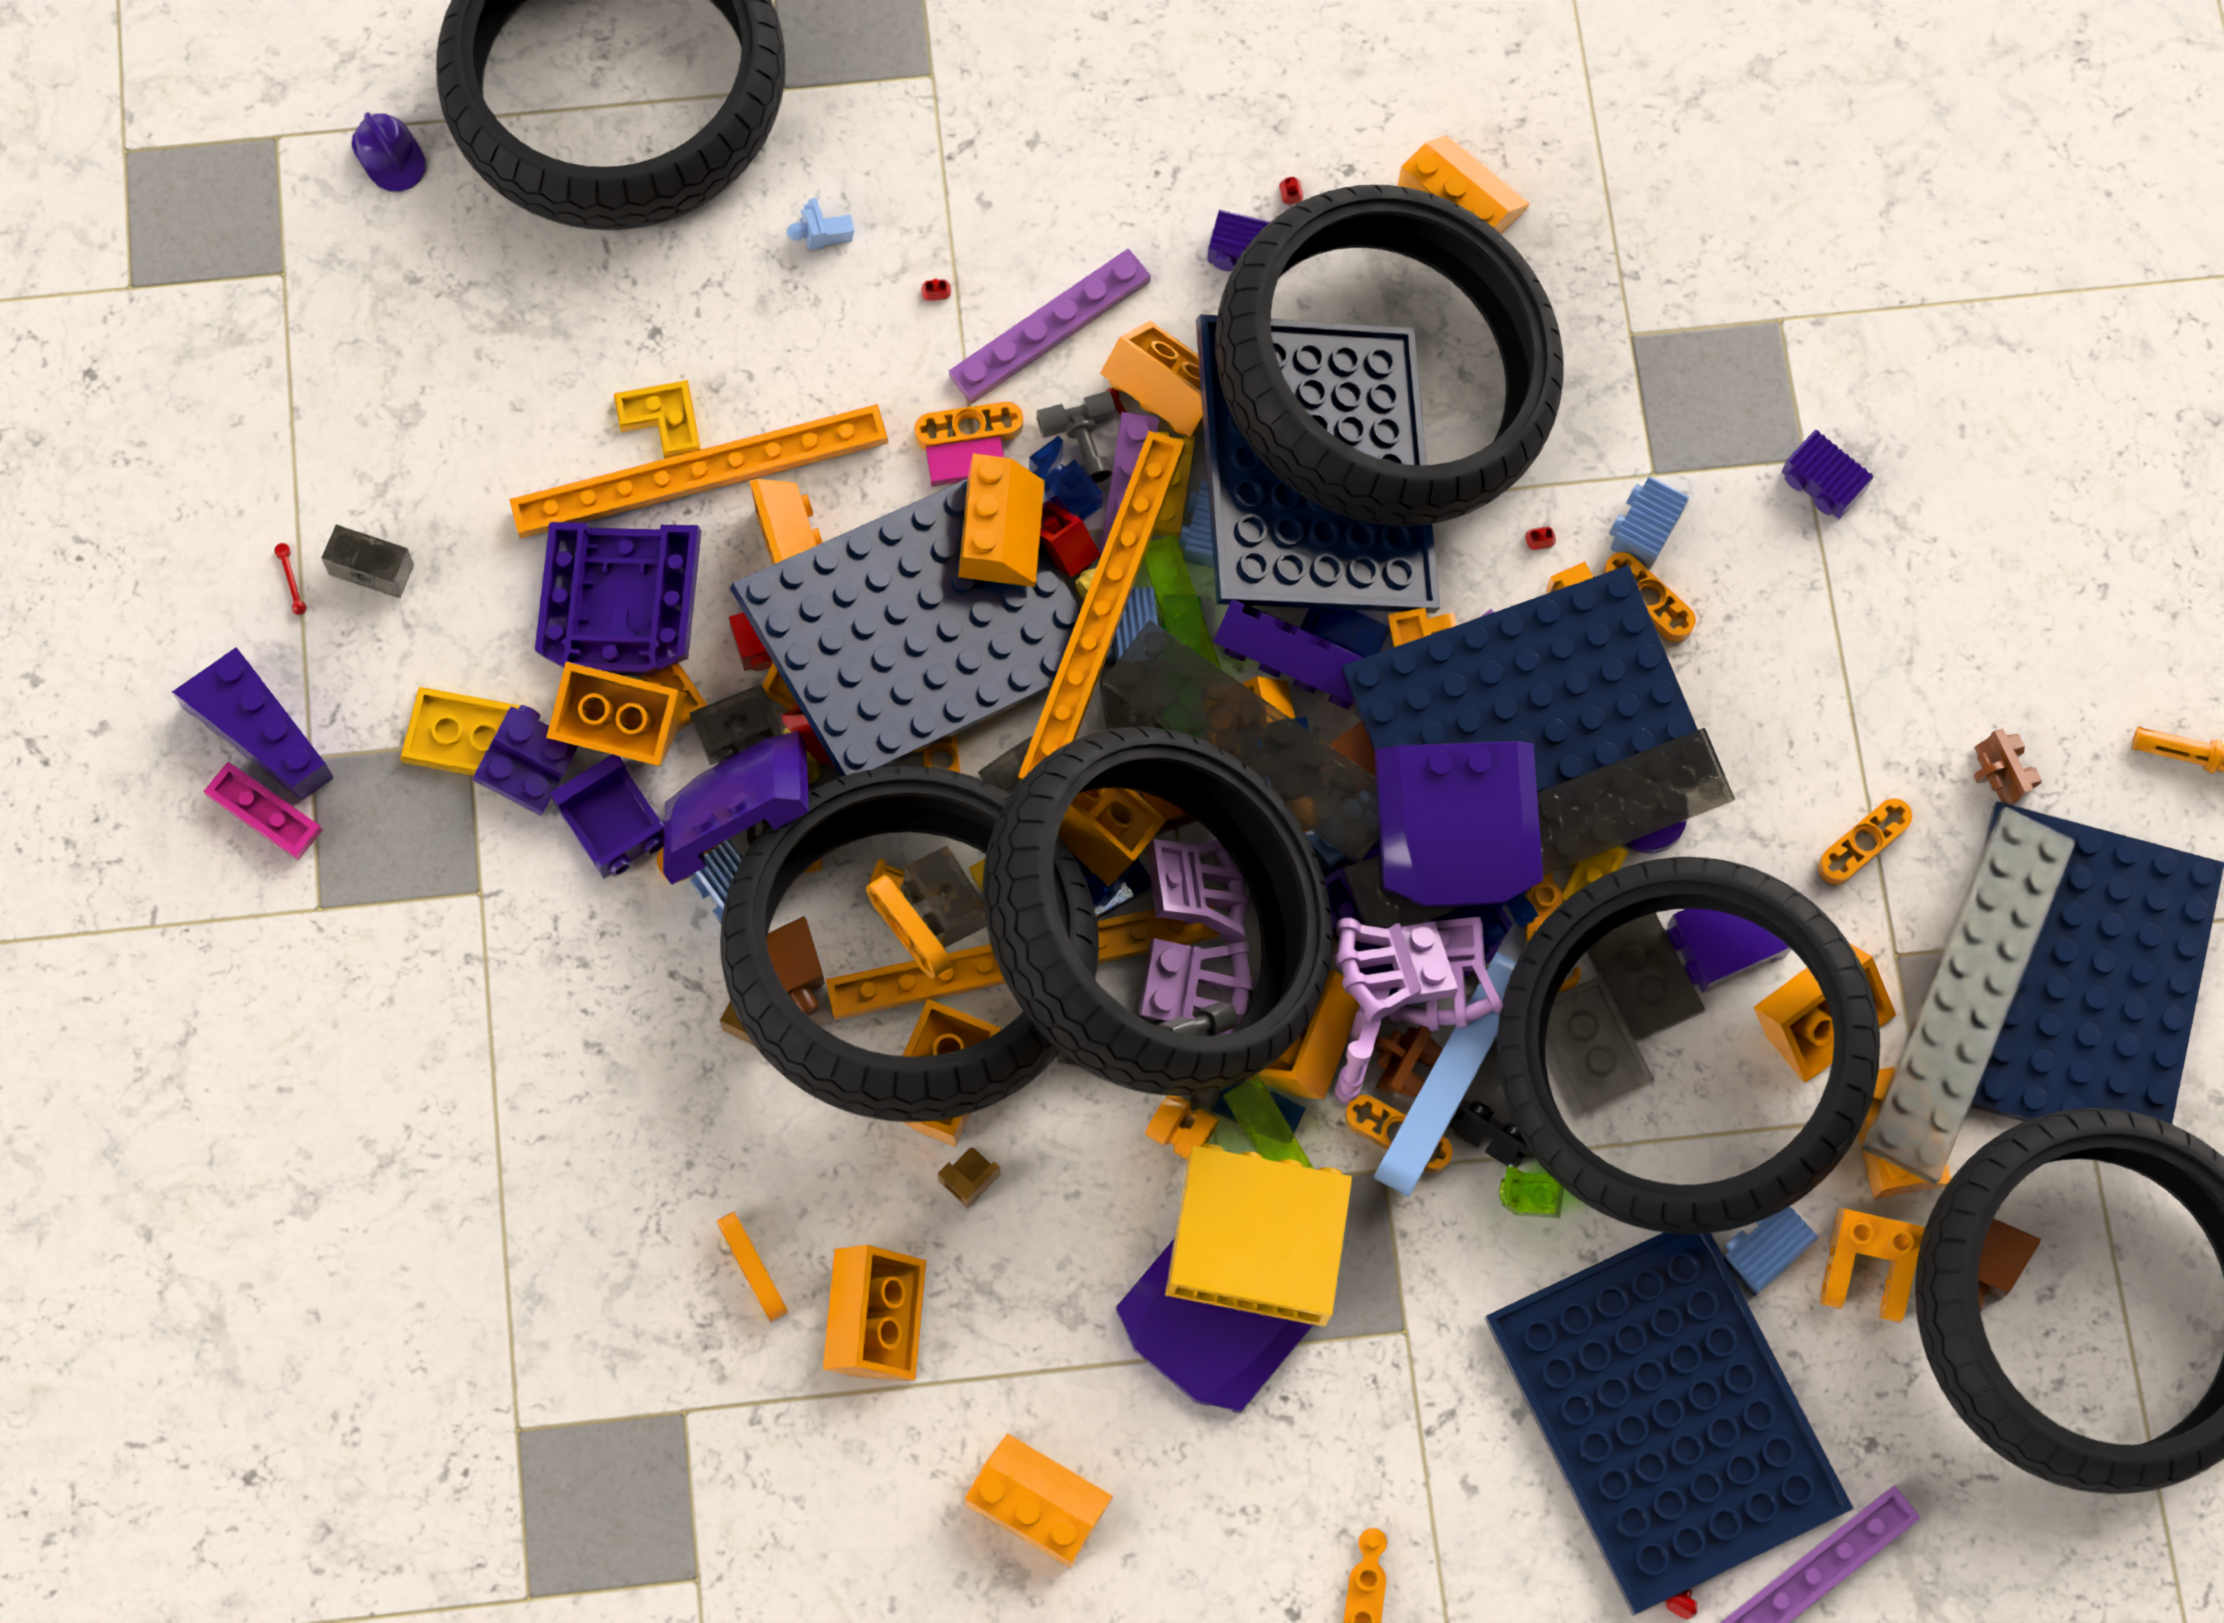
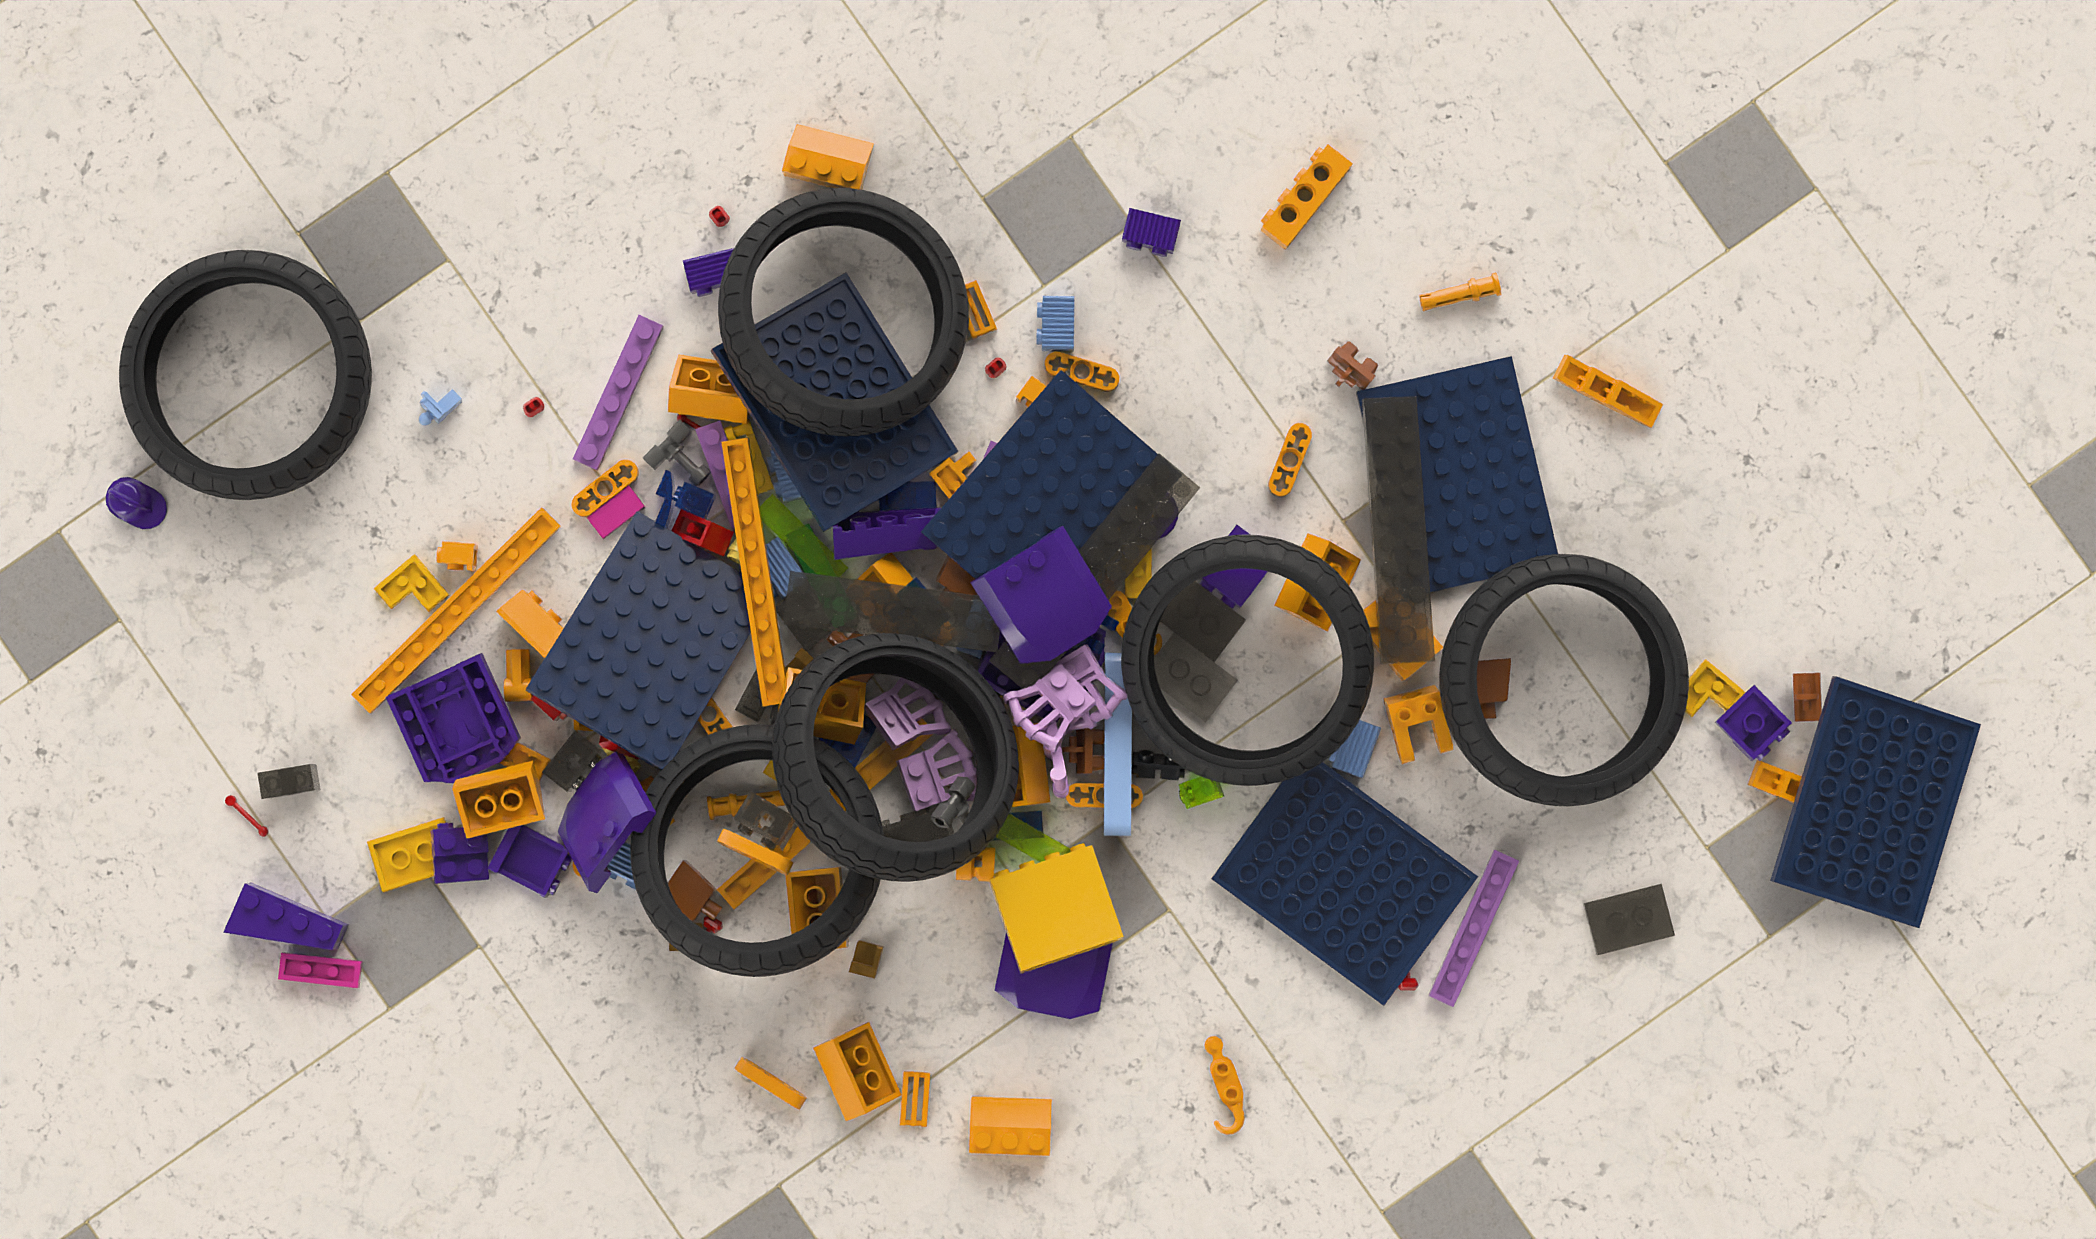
camera: 25 degrees left, 15 degrees up
(716, 598) = (517, 675): none -> light orange piece
(741, 407) = (458, 555): none -> light orange brick
(949, 1364) = (913, 1122): none -> light orange tile
(1001, 522) = (664, 551): light orange slope -> none
(1548, 484) = (983, 330): none -> light orange tile
(2000, 563) = (1285, 232): none -> light orange brick

